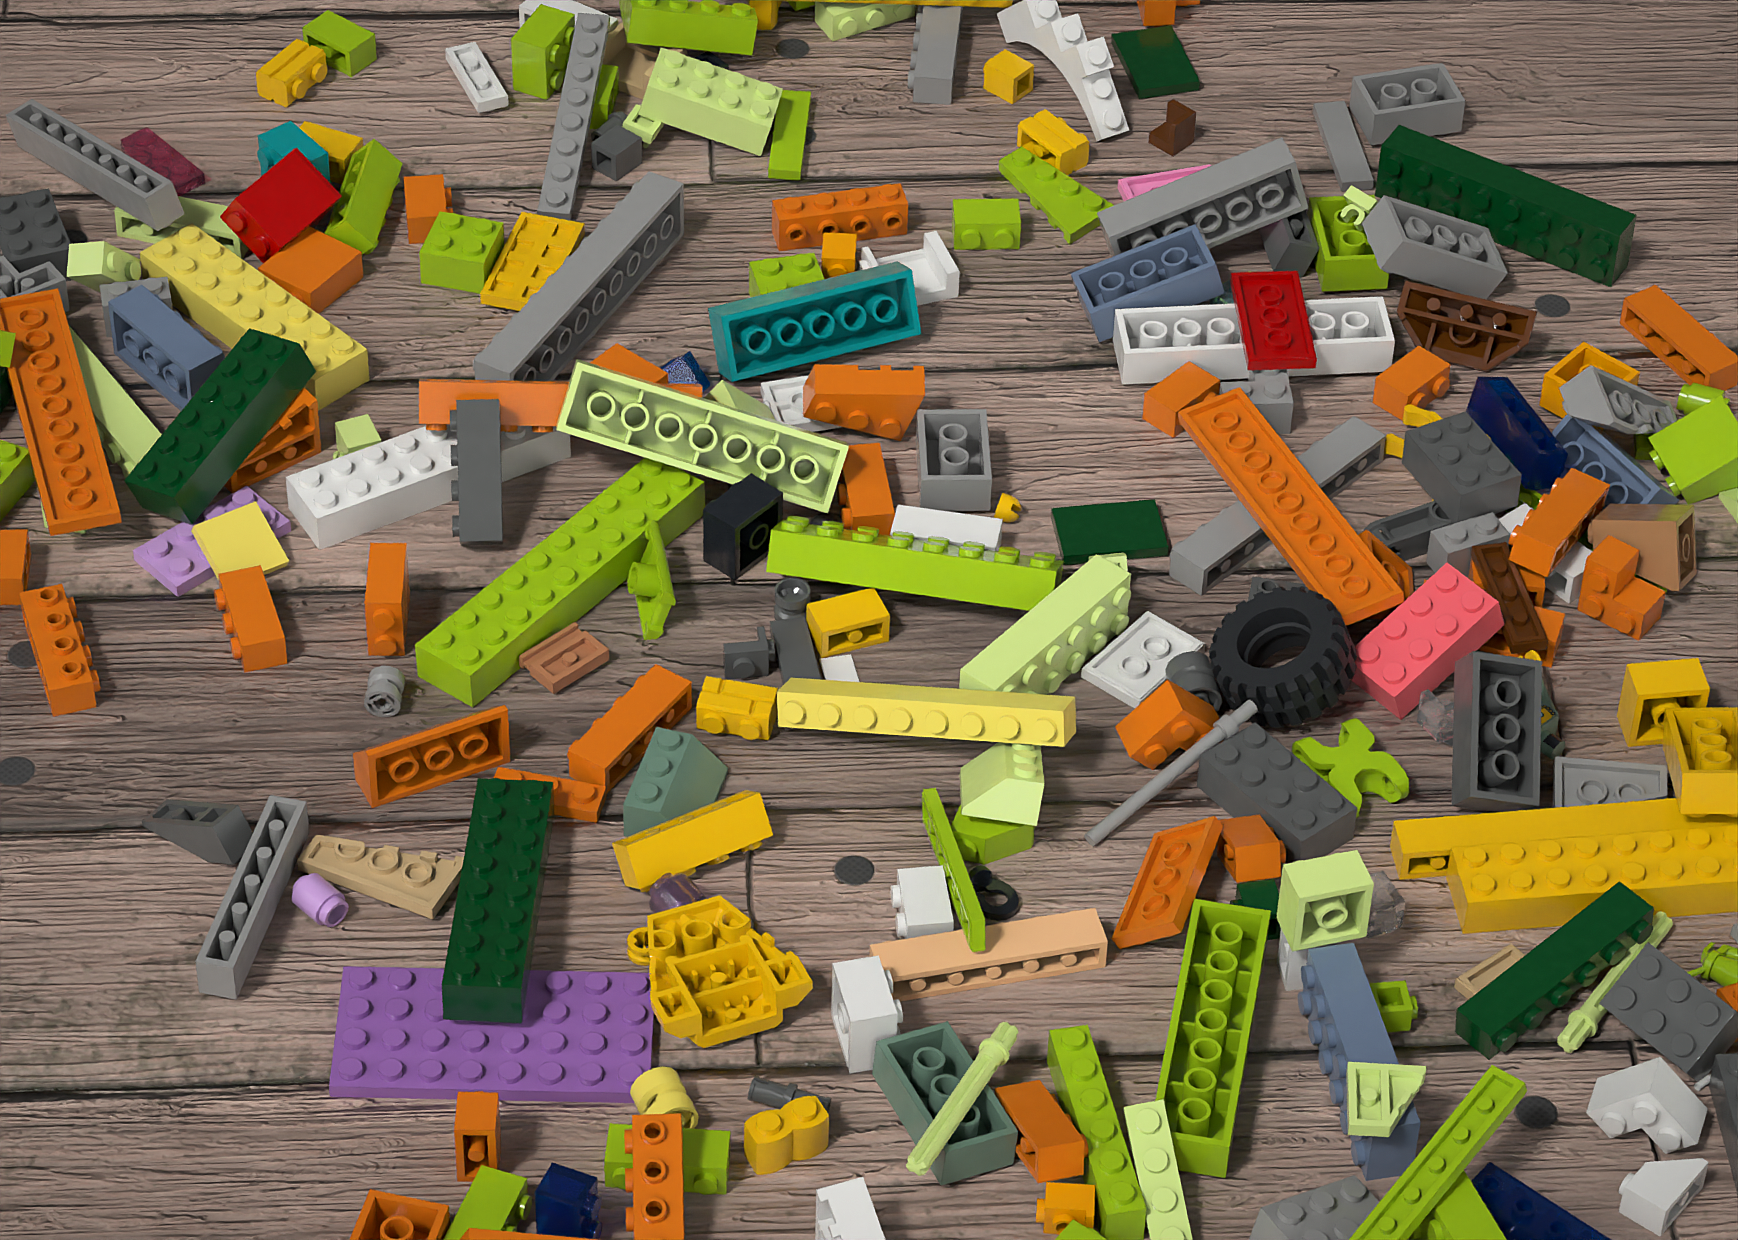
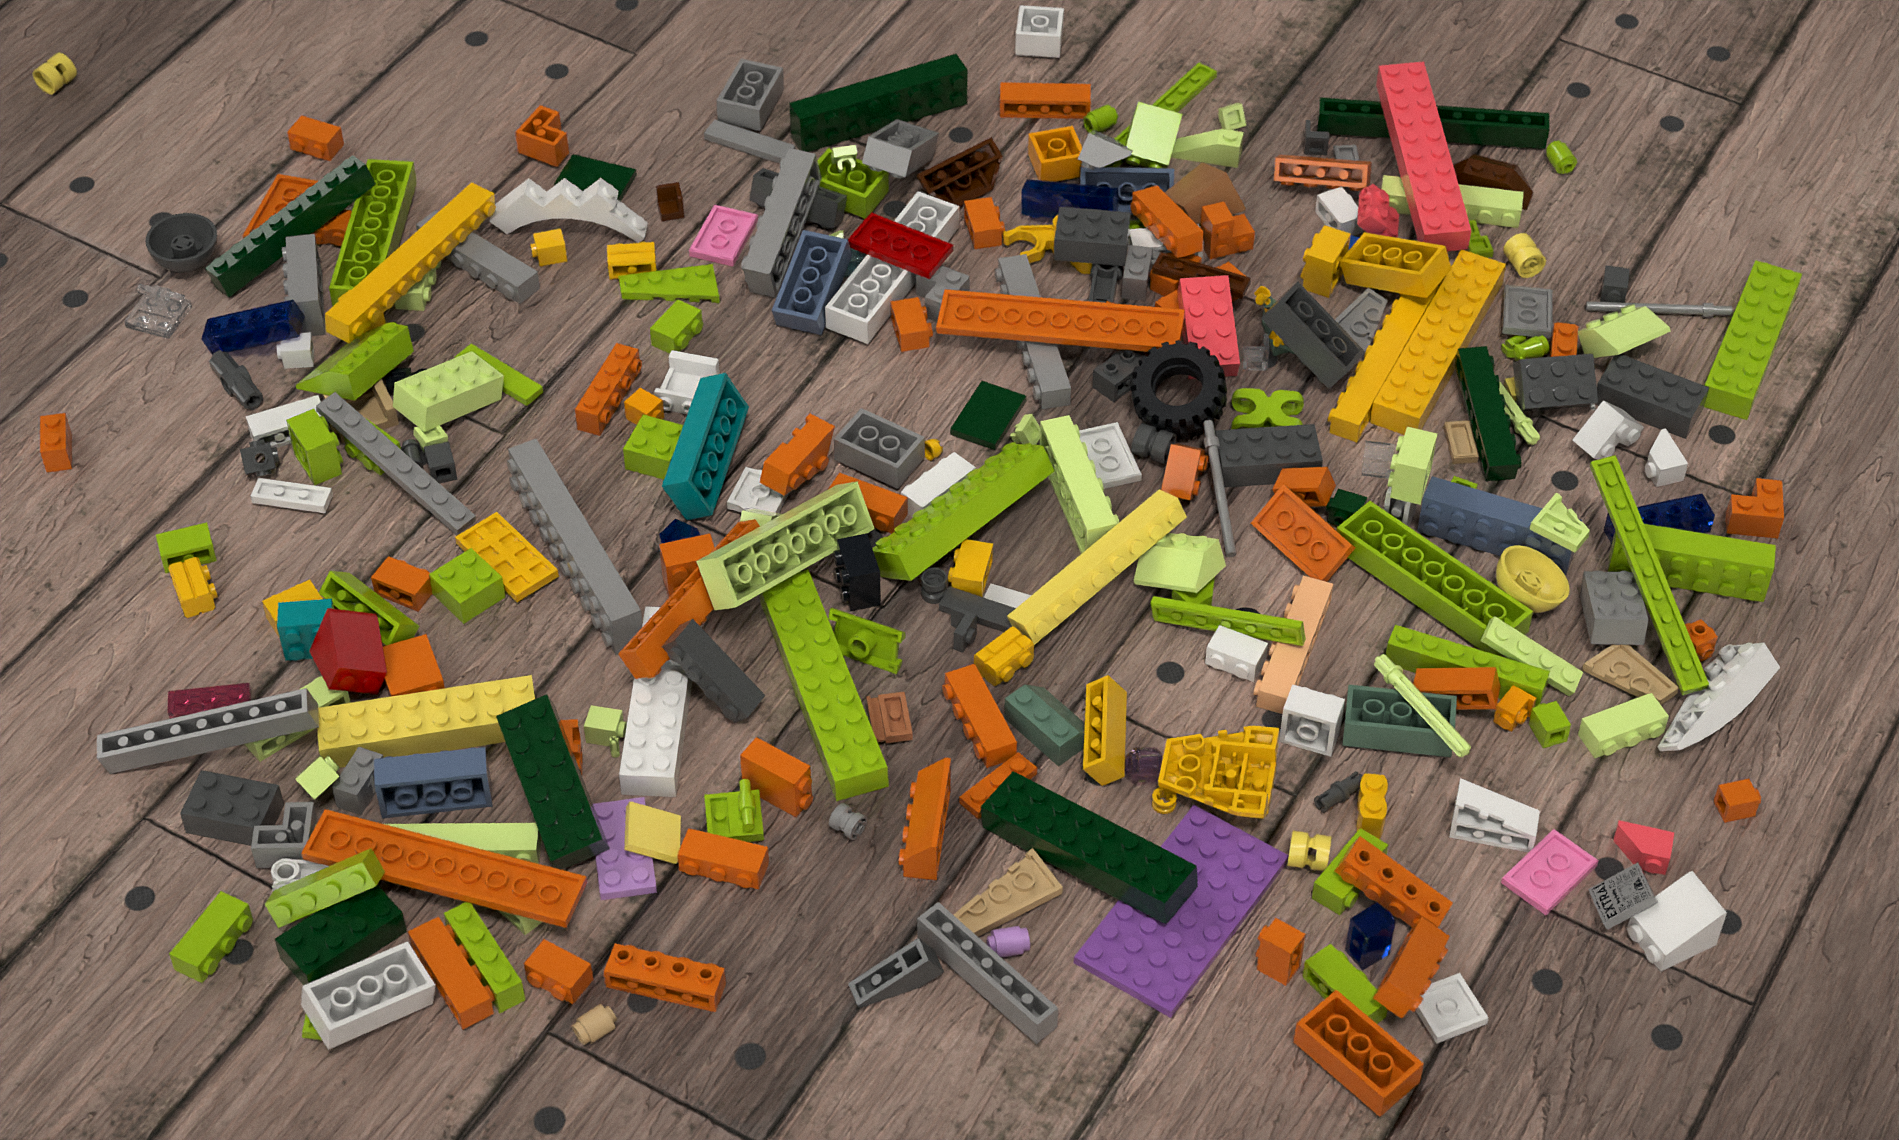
camera: 55 degrees left, 5 degrees up
(320, 600) = (735, 813): none -> lime plate
(496, 25) = (249, 461): none -> dark grey brick
(1291, 1125) = (1531, 578): none -> light yellow piece

